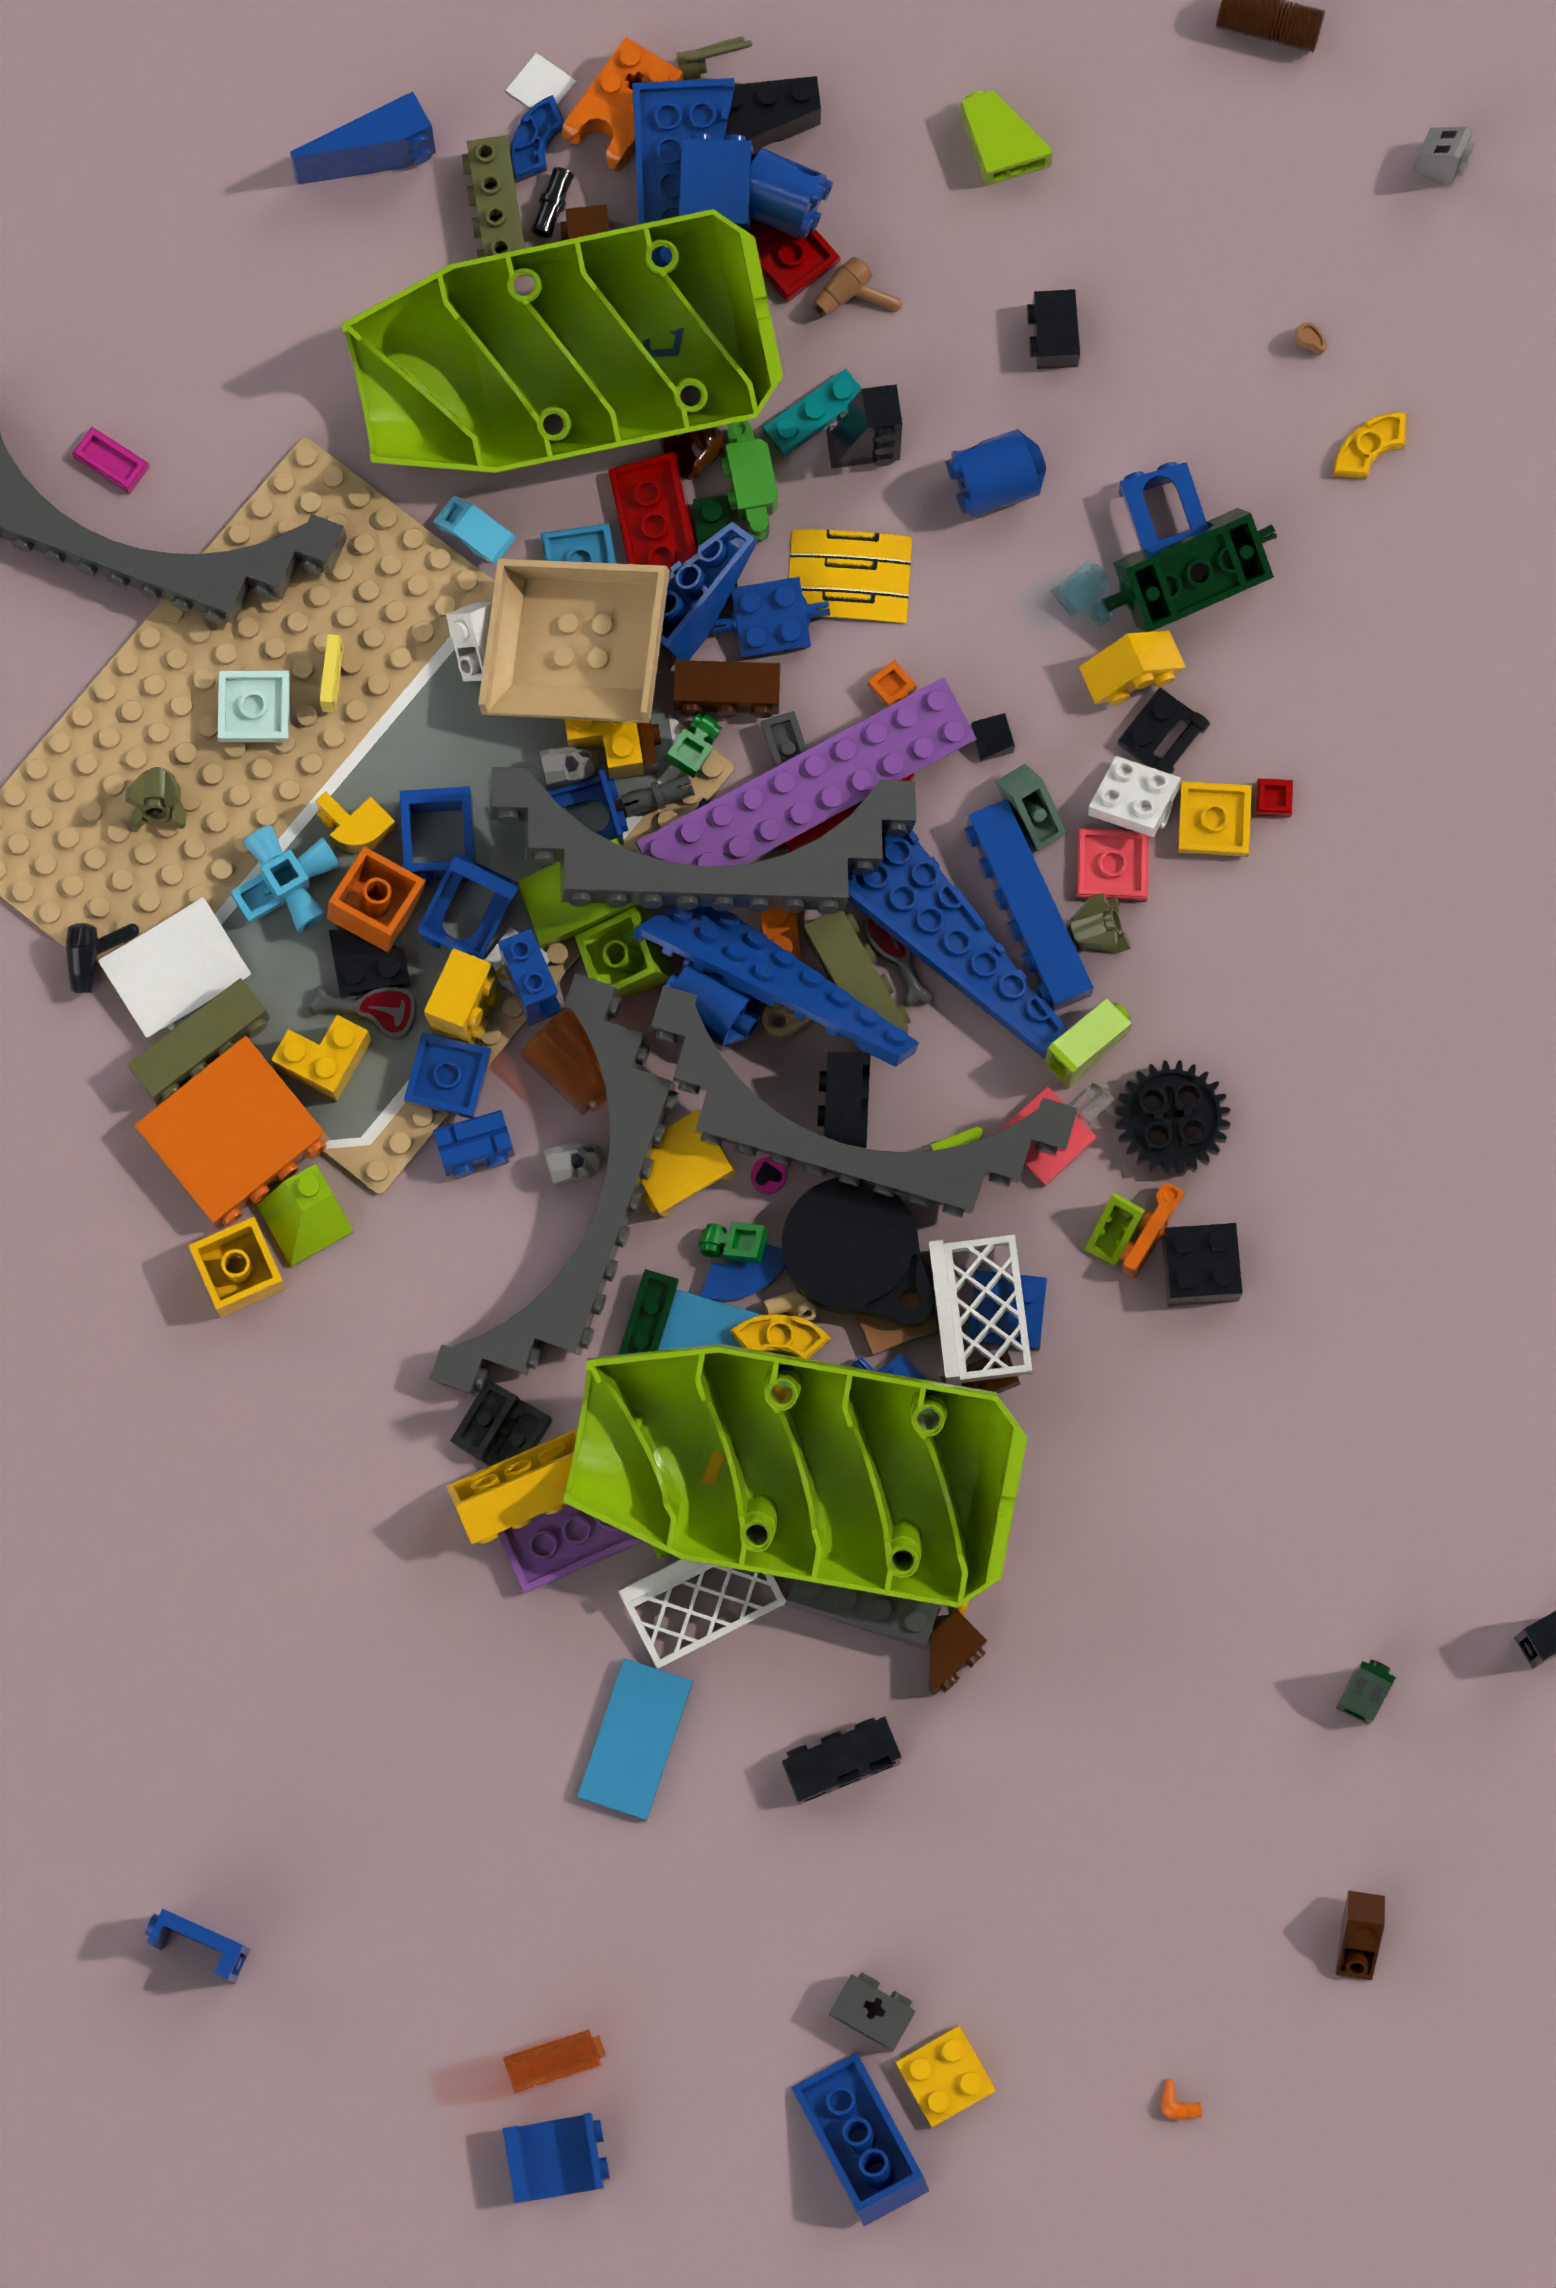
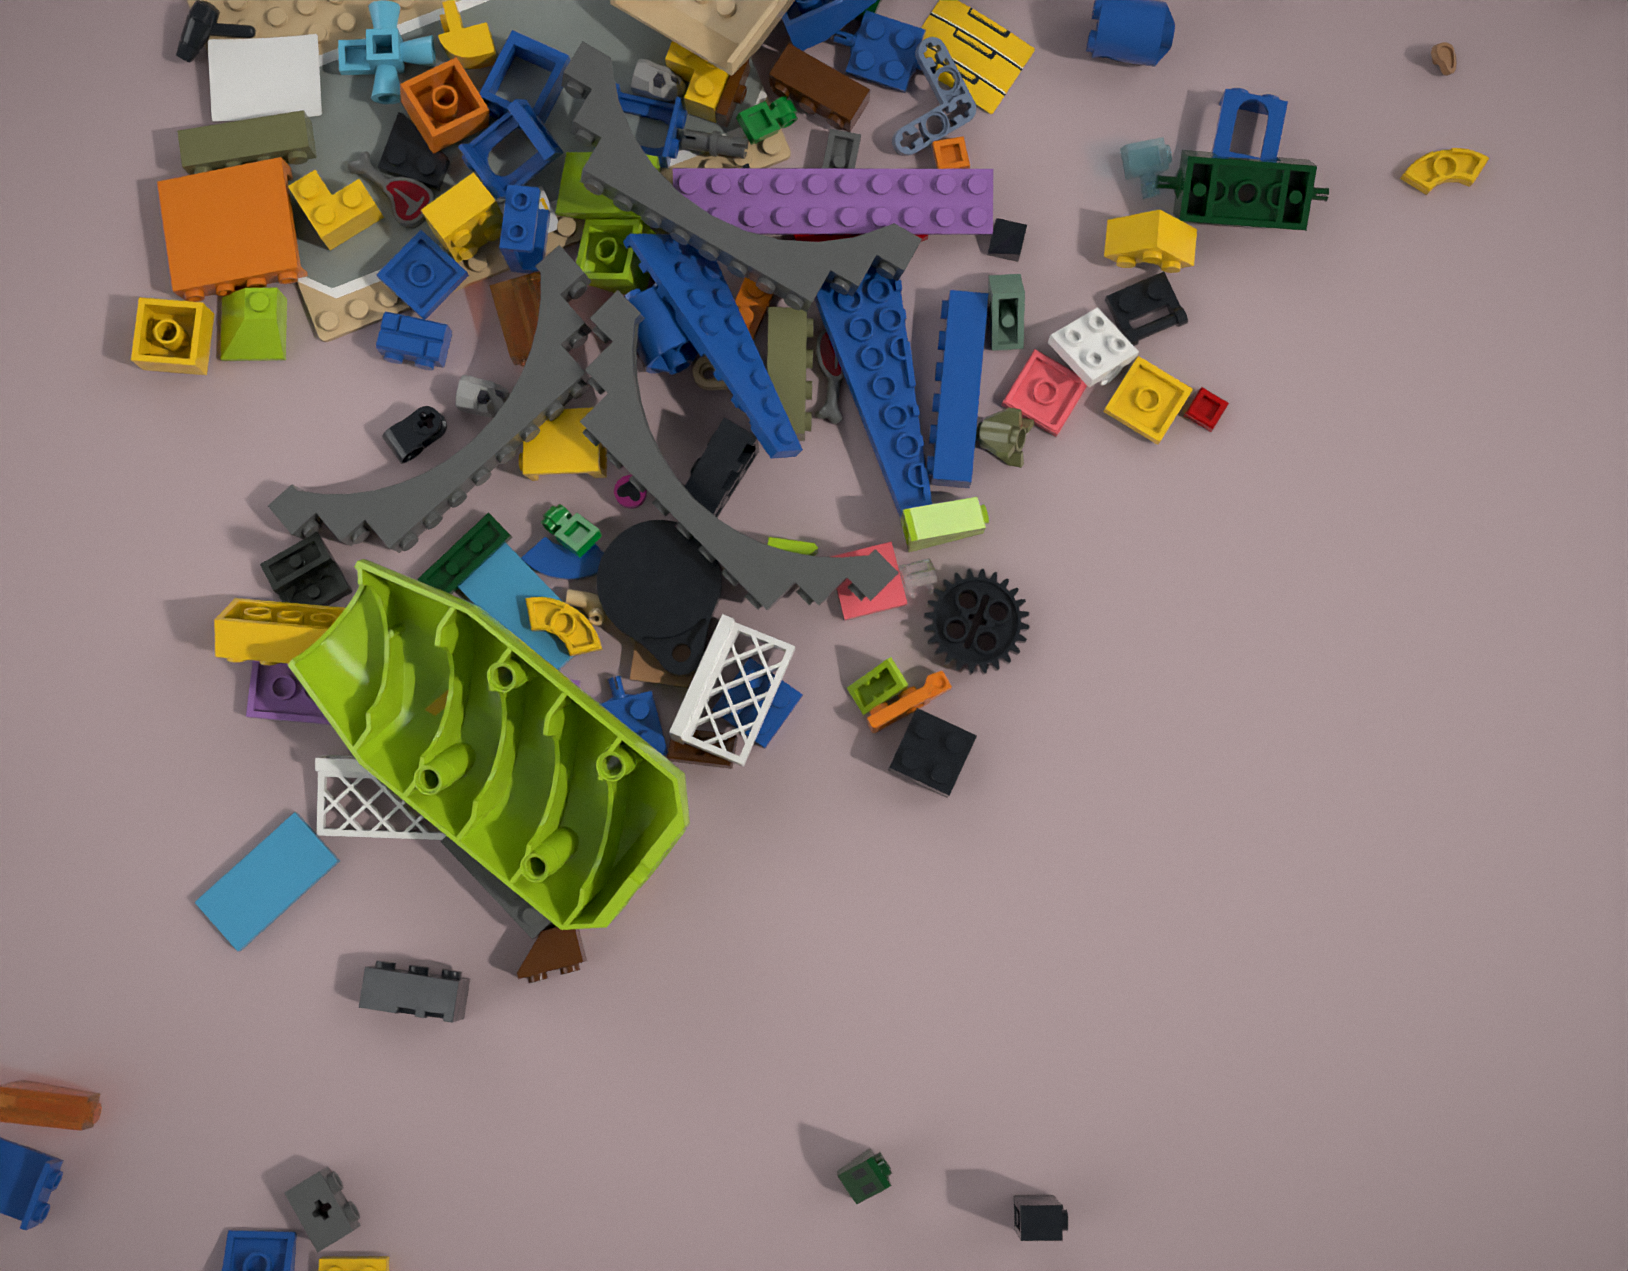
camera: 30 degrees right, 5 degrees up
(526, 1238) = (412, 436): none -> black piece
(857, 632) = (946, 98): none -> sand blue beam

